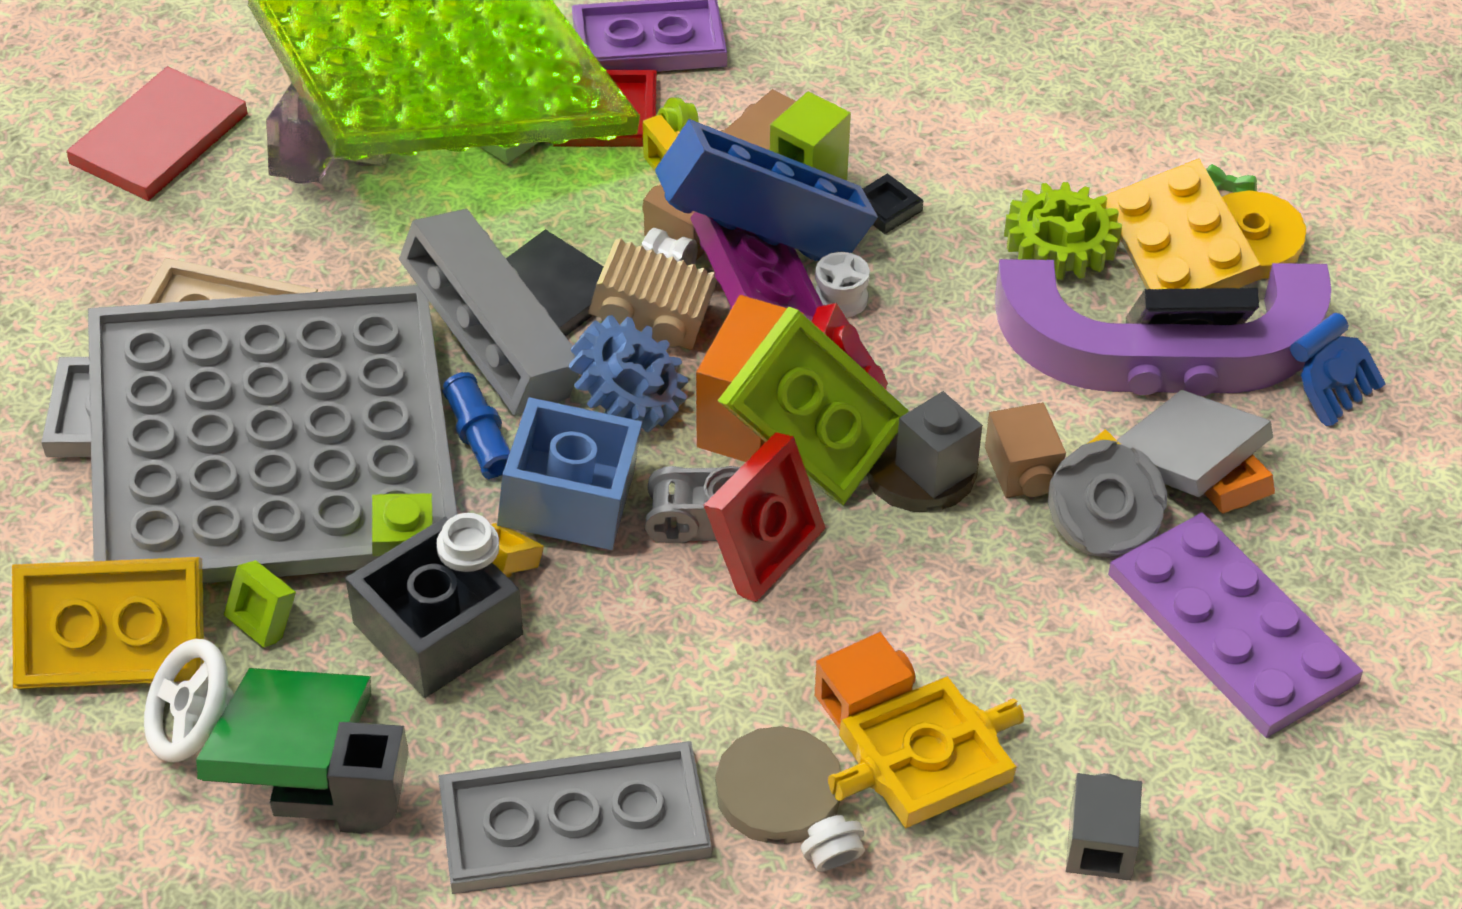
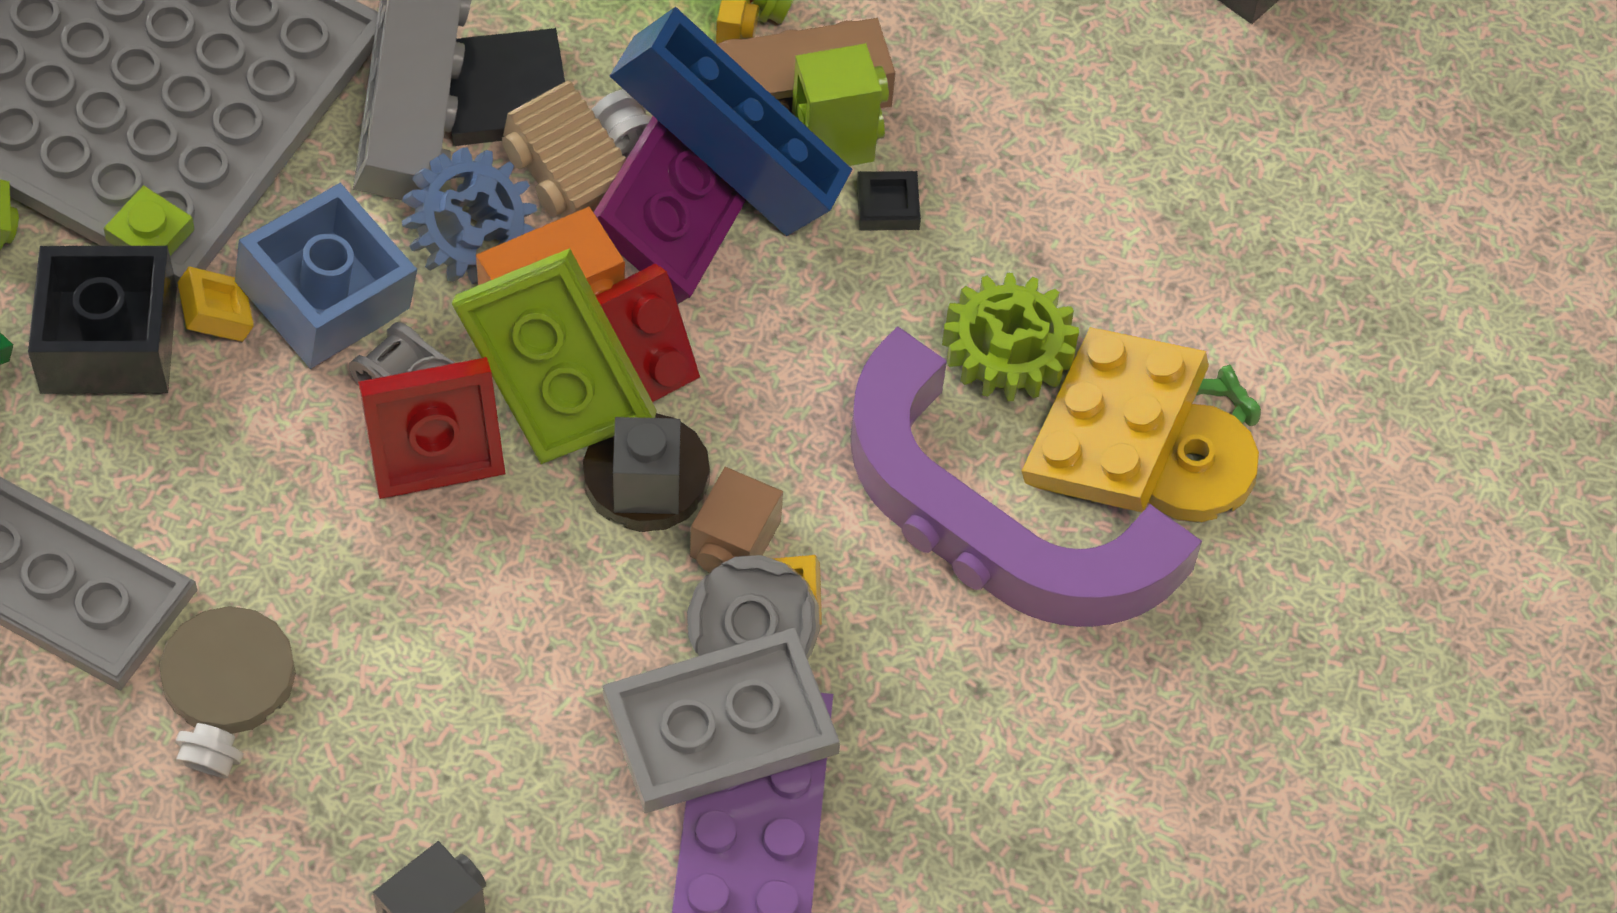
camera: 35 degrees right, 10 degrees up
(467, 542) = (147, 282): white plate -> none
(477, 423) = (320, 164): blue pin -> none
(843, 280) = (758, 240): white wheel -> none
(862, 677) = (373, 636): orange brick -> none
(927, 751) = (363, 730): yellow plate -> none
(1168, 566) = (720, 720): none -> light grey plate
(1194, 306) = (1015, 499): black tile -> none
(1197, 440) = (892, 622): light grey tile -> none
(1242, 486) = (893, 685): orange plate -> none
(1332, 364) = (1106, 638): blue piece -> none

